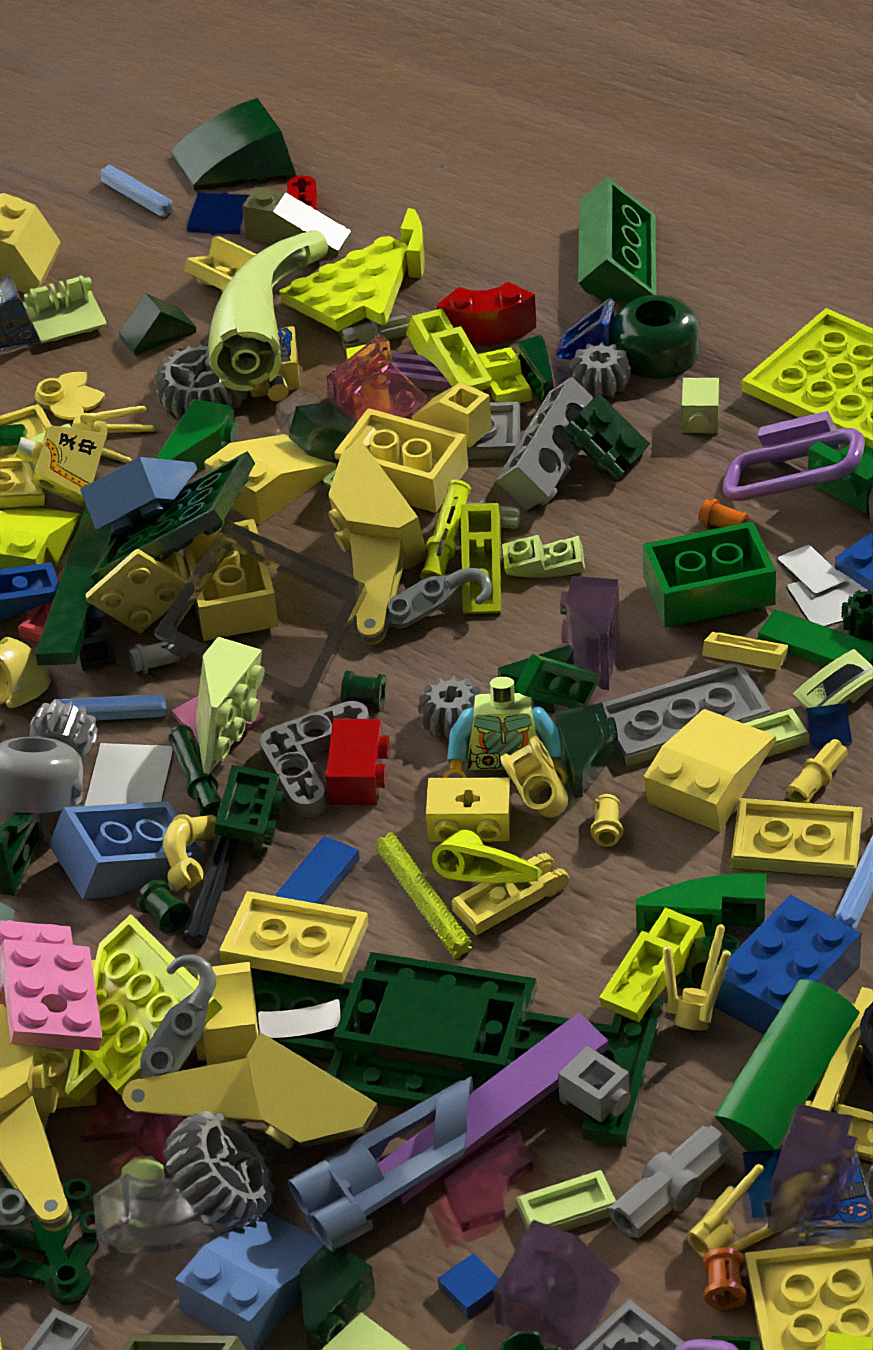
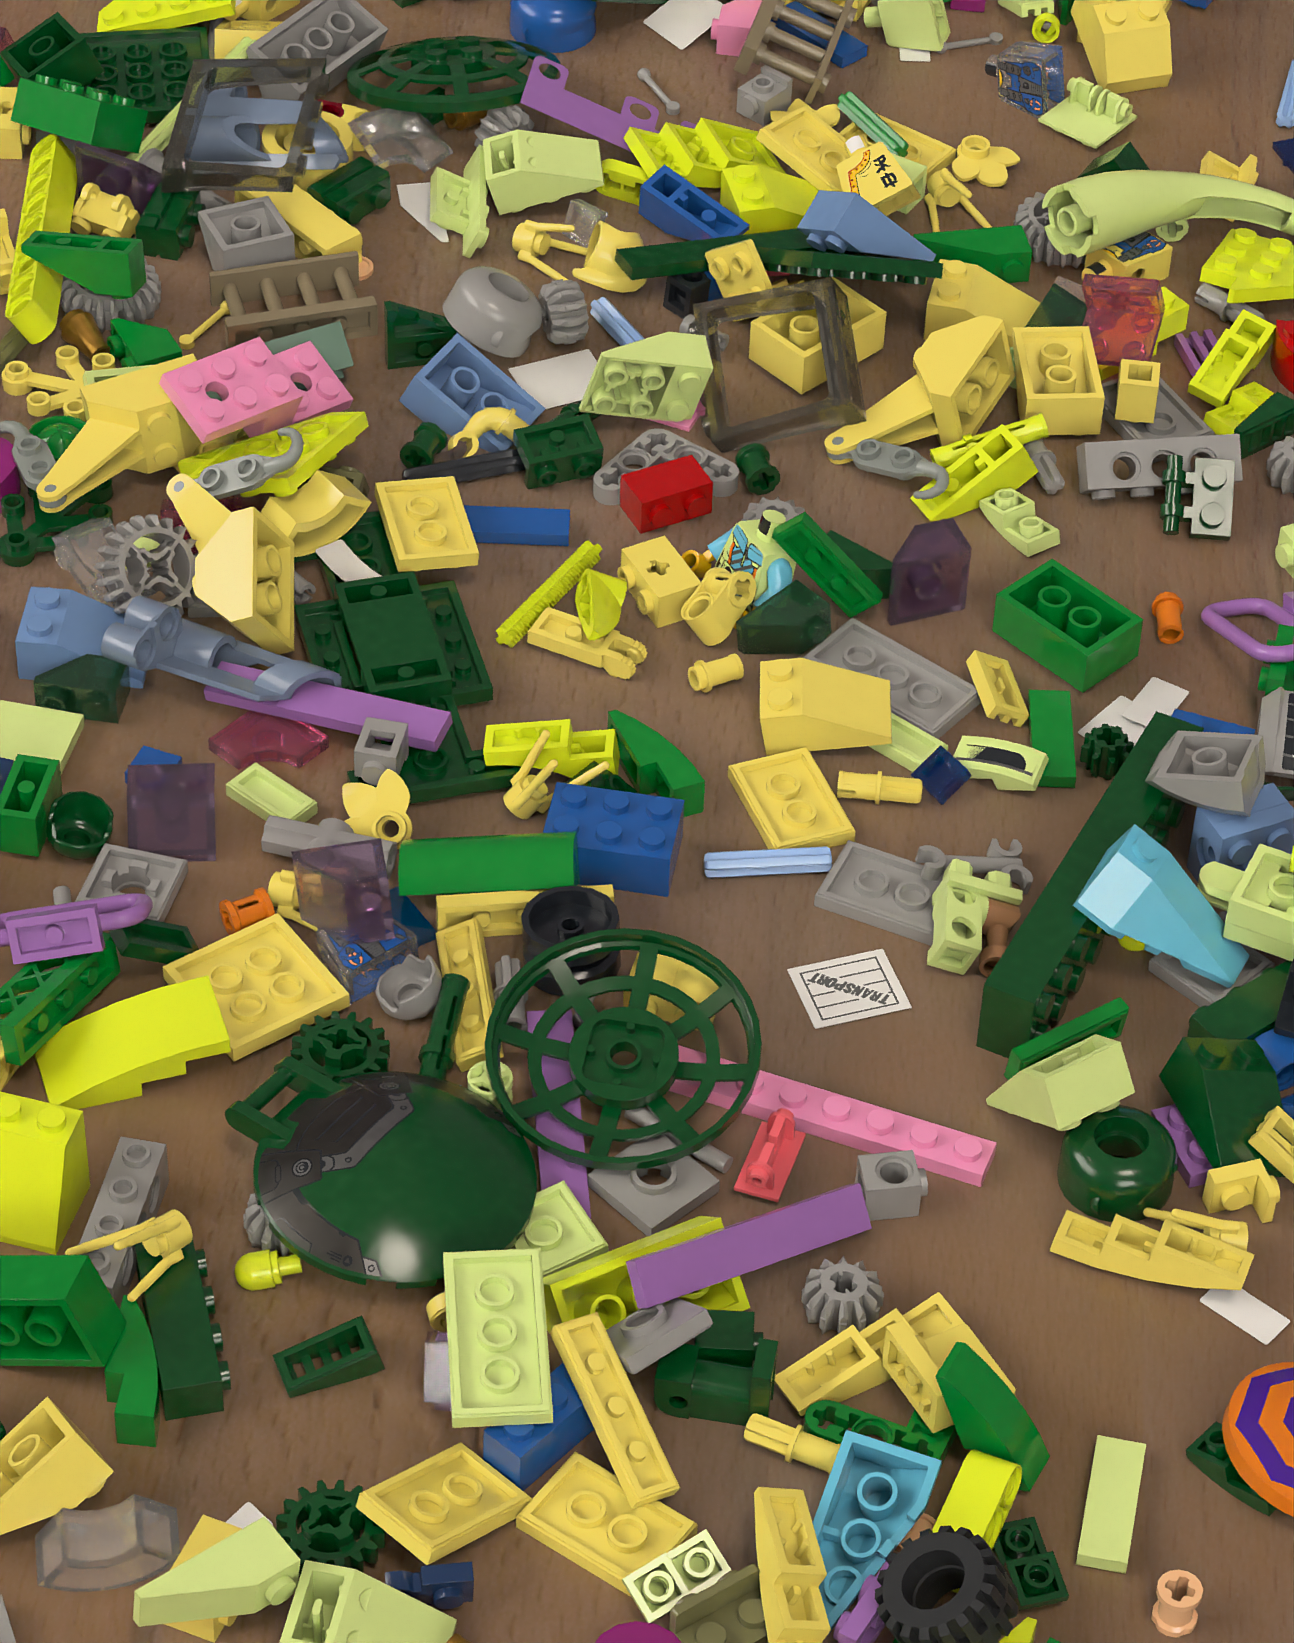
camera: 55 degrees right, 0 degrees up
(648, 1123) = (375, 806): none -> light yellow plate

